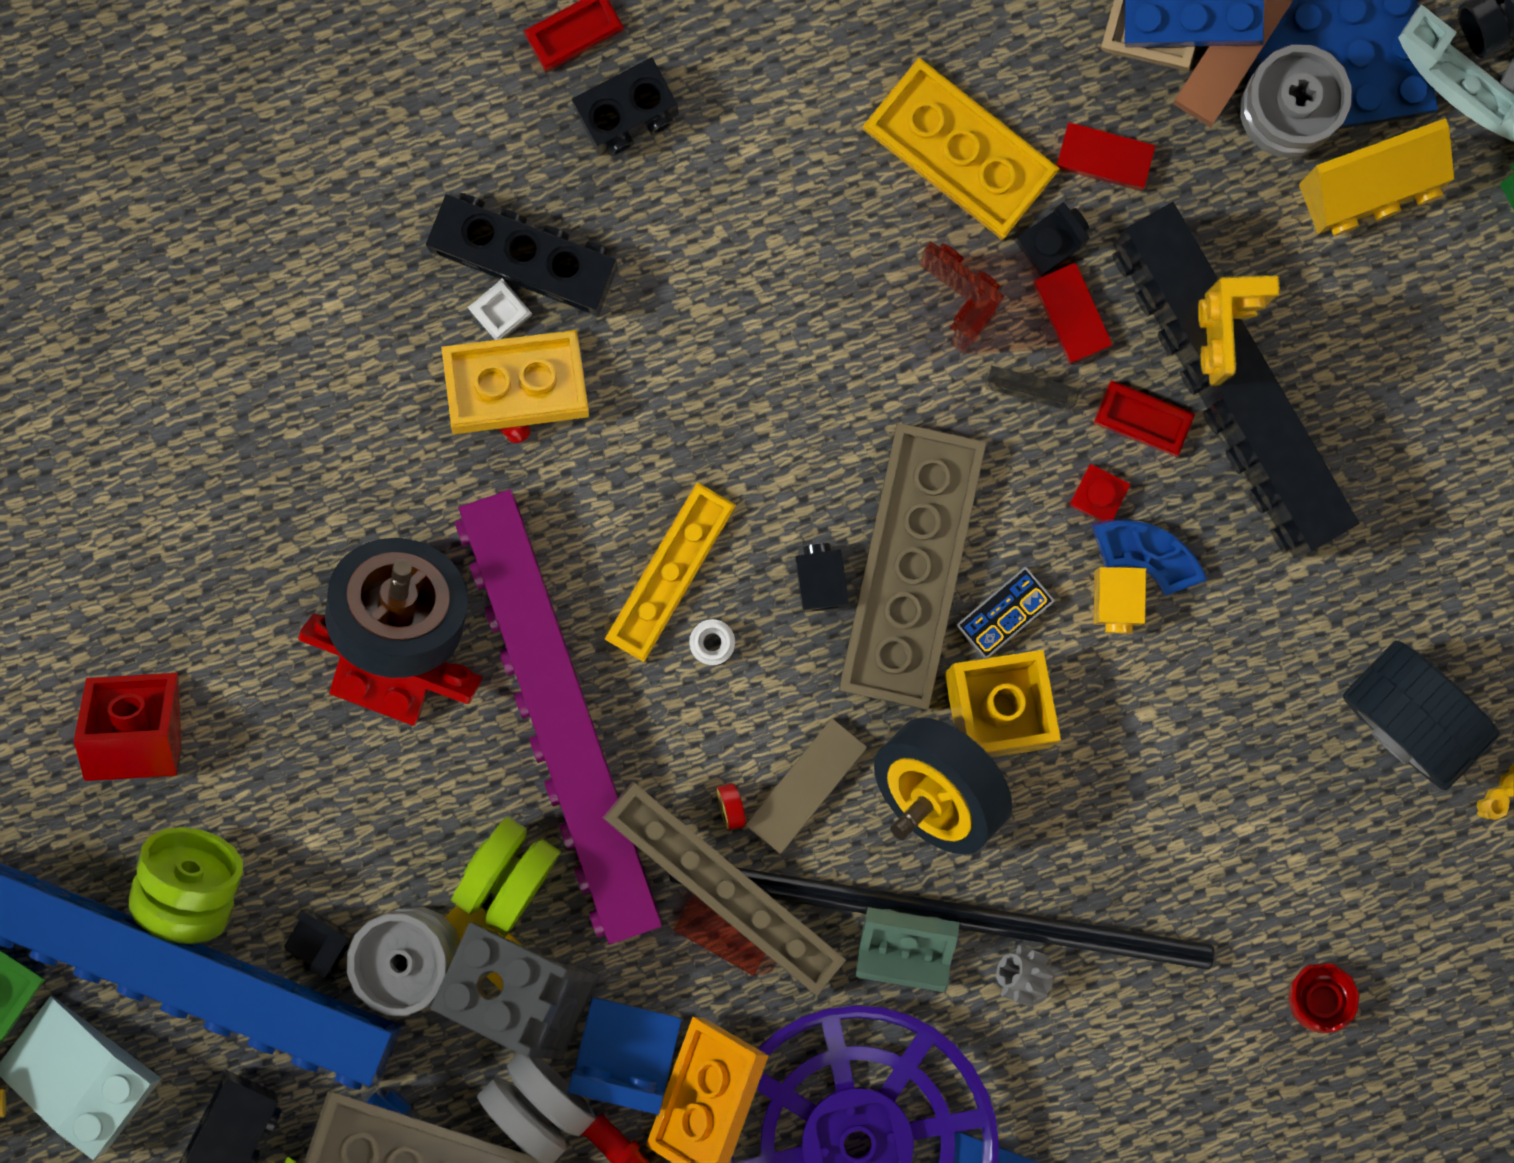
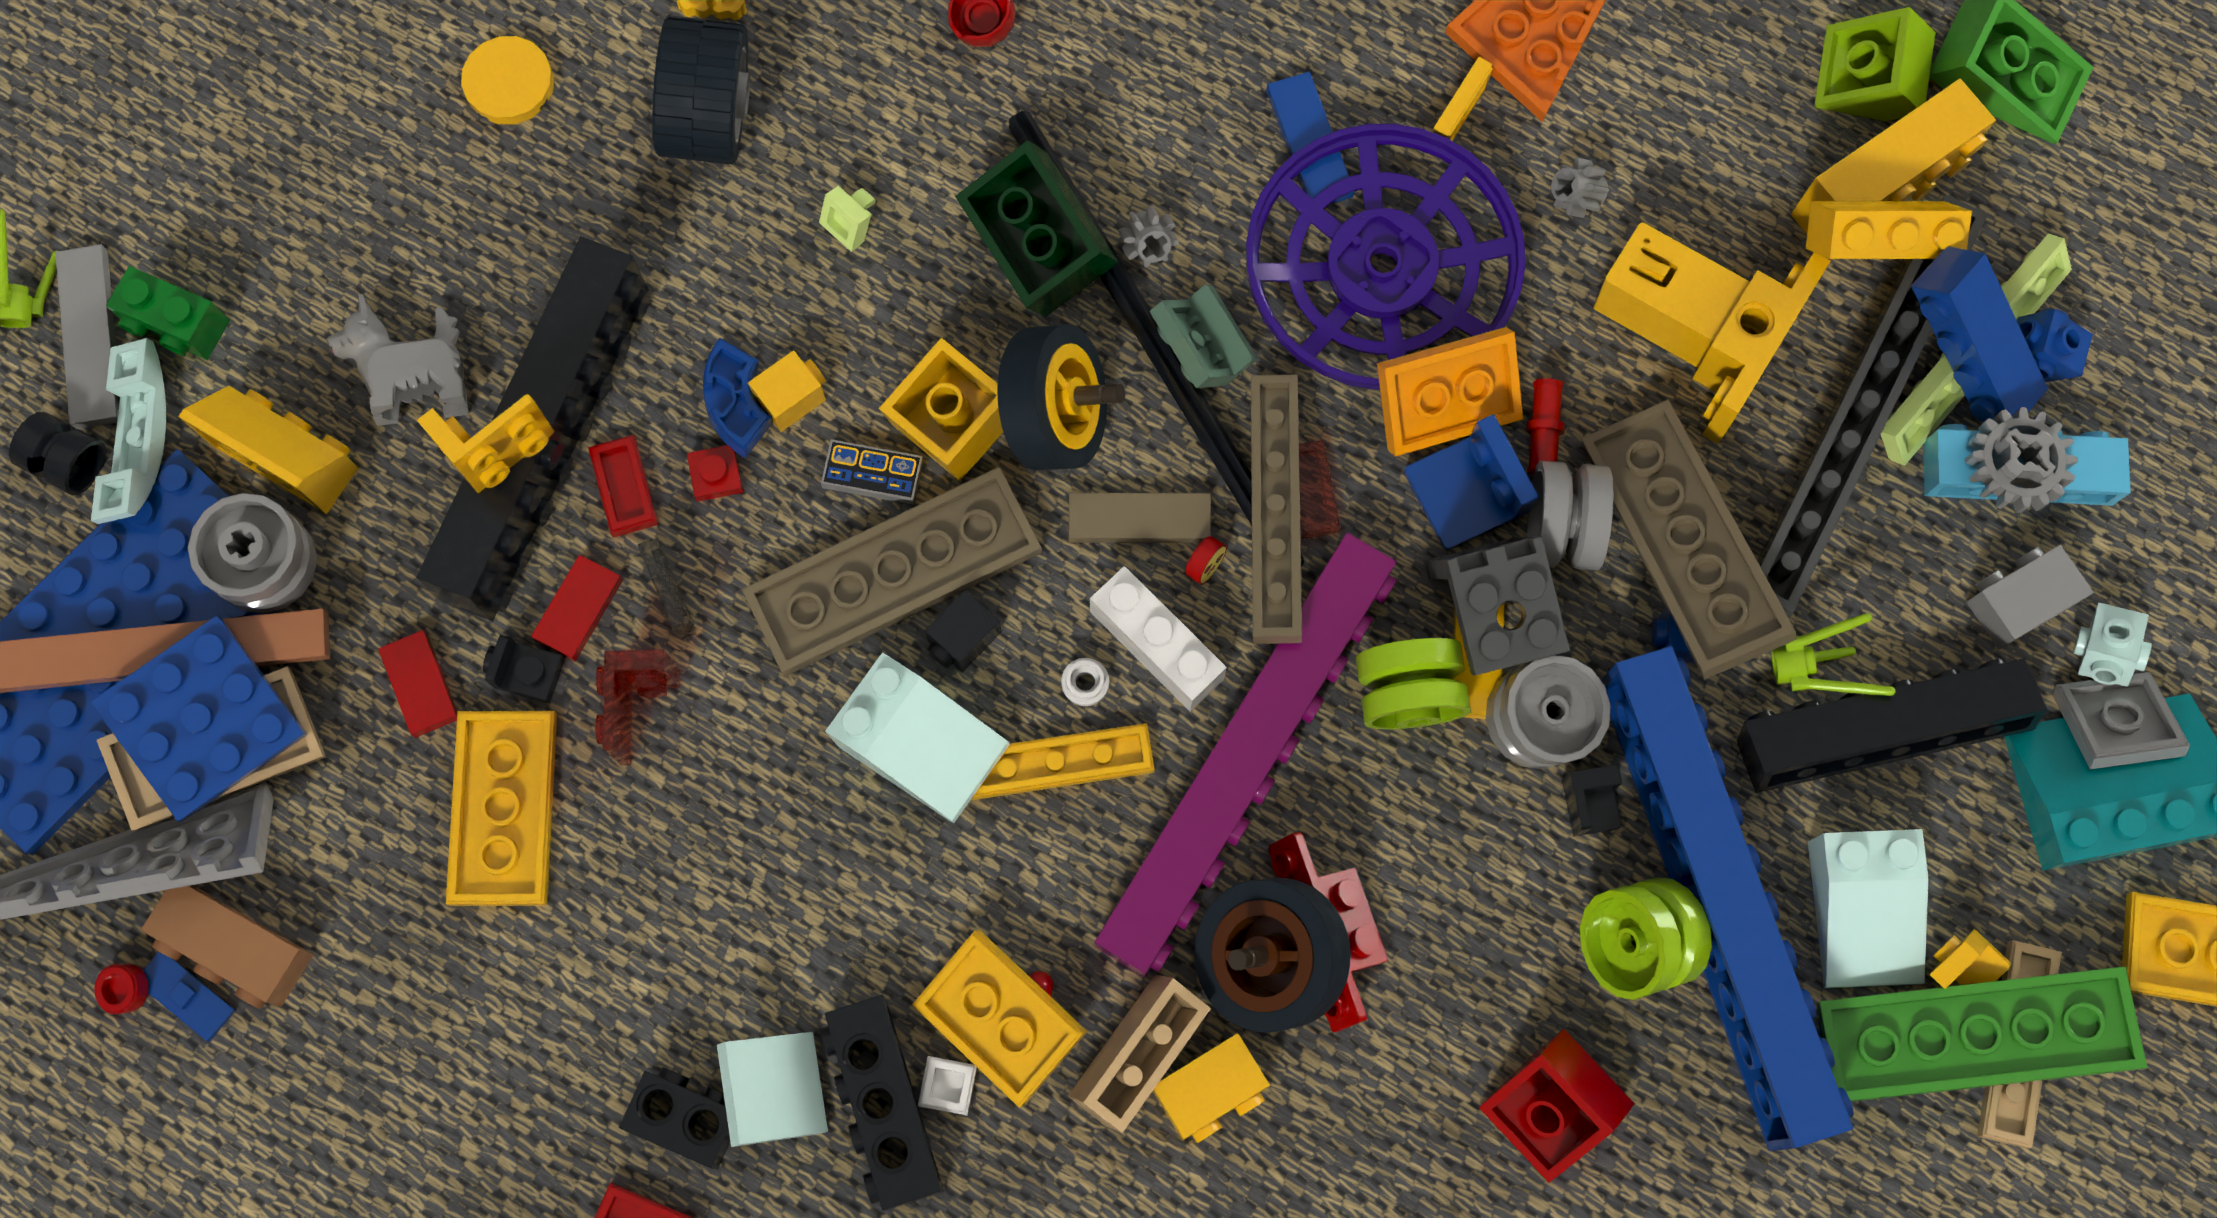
camera: 125 degrees left, 10 degrees down
(342, 491) = (1211, 1088): none -> yellow brick
(407, 458) = (1139, 1052): none -> tan brick
(594, 184) = (772, 1088): none -> light aqua tile
(697, 718) = (1157, 638): none -> white brick
(765, 482) = (917, 738): none -> light aqua slope
(1096, 889) = (1036, 229): none -> dark green brick
(1229, 755) = (847, 216): none -> yellowish green tile
(1368, 321) = (403, 369): none -> light grey animal

